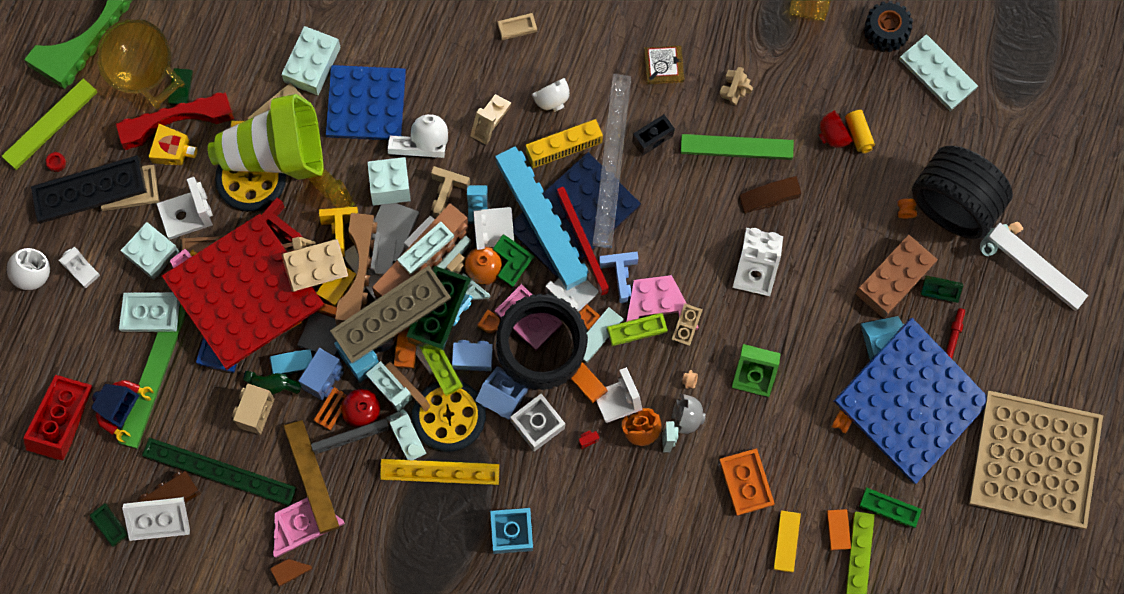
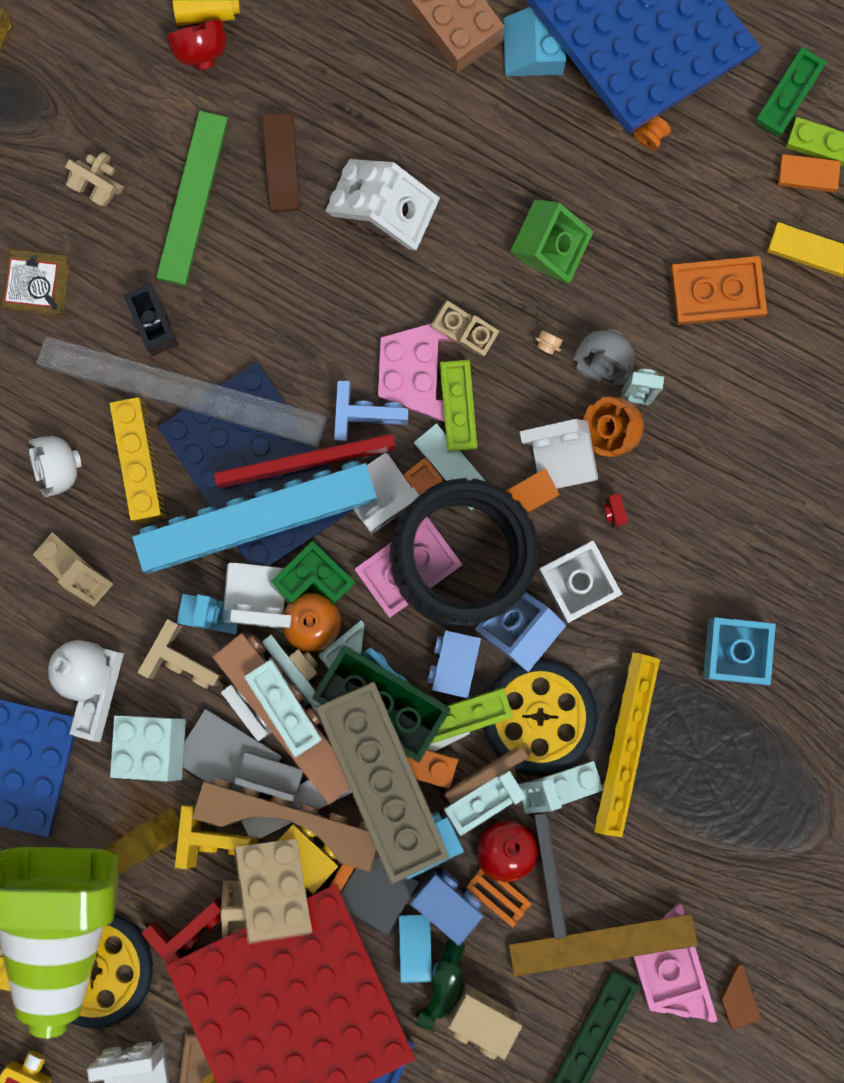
camera: 75 degrees left, 10 degrees up
(489, 322) = (403, 628): orange tile -> none

